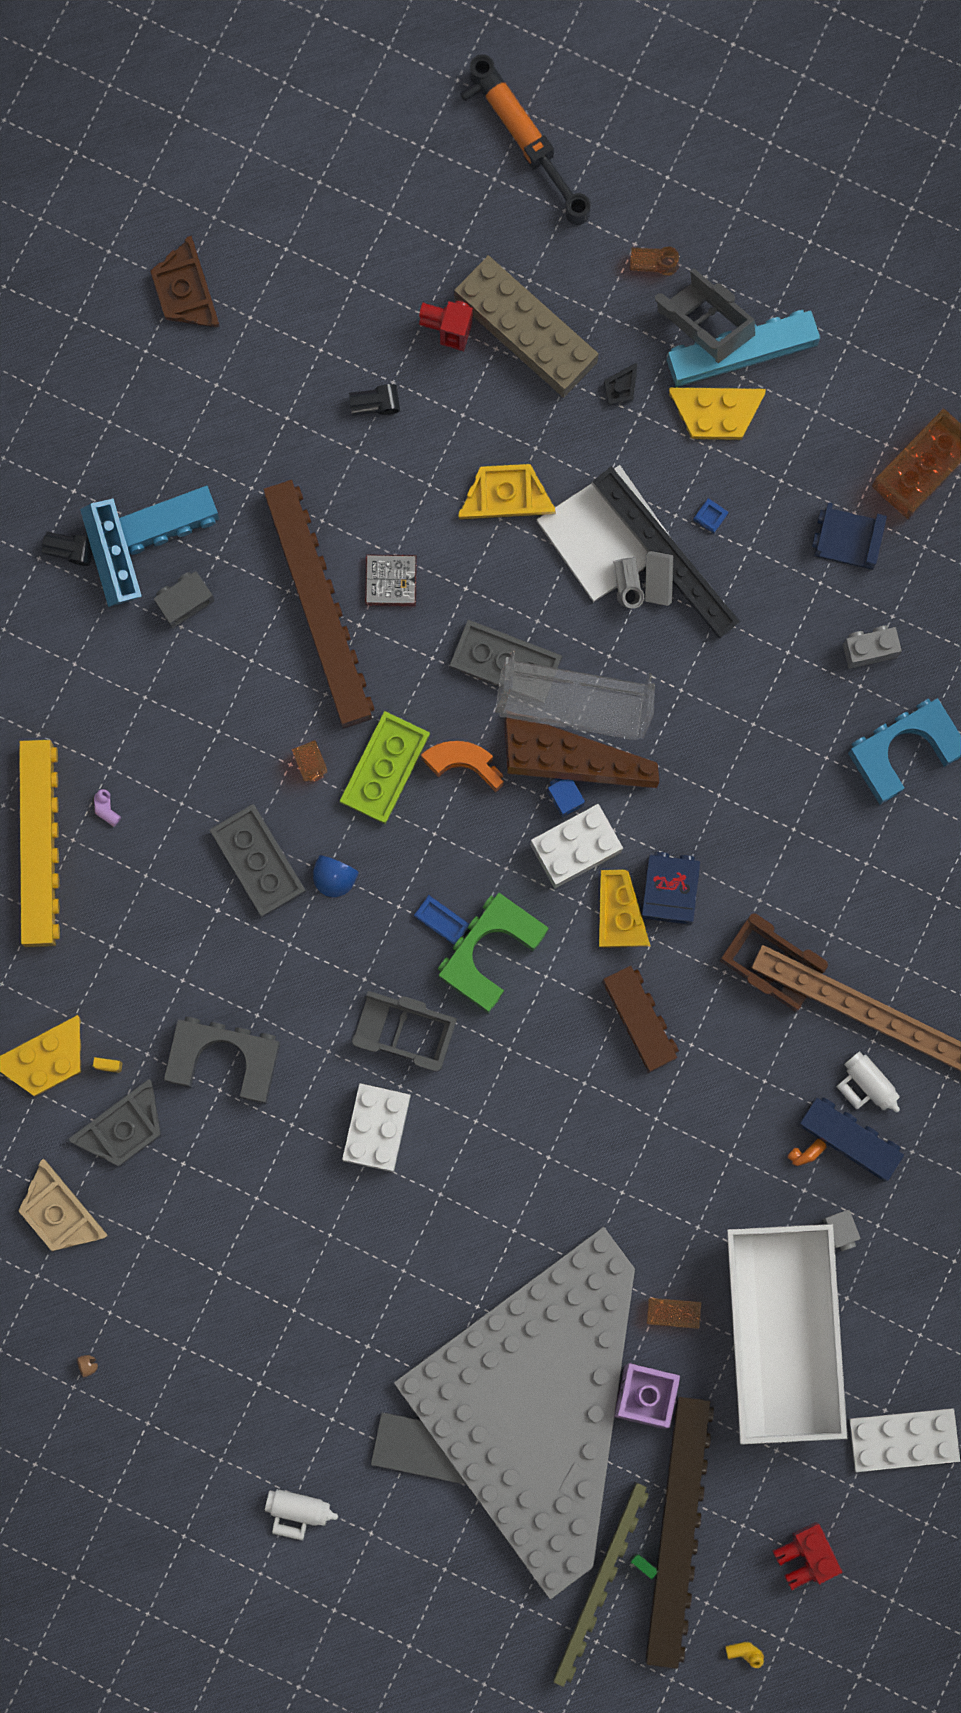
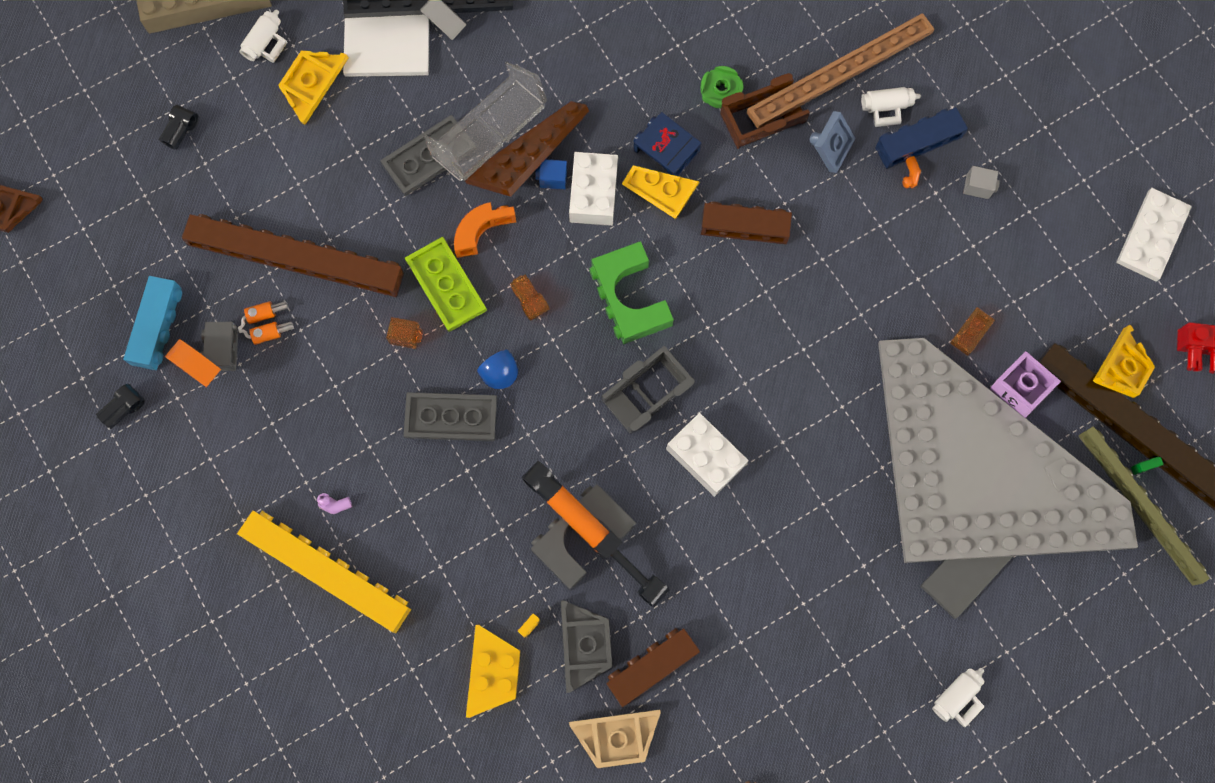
camera: 55 degrees left, 5 degrees down
(110, 552) = (144, 375): dark azure brick -> none
(142, 1204) = (652, 667): none -> reddish brown brick
(148, 589) = (193, 363): none -> orange arch
(226, 630) = (268, 331): none -> orange piece
(230, 1062) = (590, 529): none -> black piece
(390, 580) = (313, 196): light grey tile -> none
(421, 861) = (531, 301): none -> clear orange piece
(441, 920) = (583, 315): blue tile -> none
(452, 322) = (160, 39): red brick -> none
(521, 412) = (261, 35): none -> white piece
(628, 579) = (431, 38): light grey piece -> none
(734, 1487) = (1126, 366): none -> yellow wing
(779, 891) = (716, 77): none -> bright green plate
(783, 1053) = (833, 141): none -> sand blue tile
(786, 1334) = (1045, 255): white piece -> none

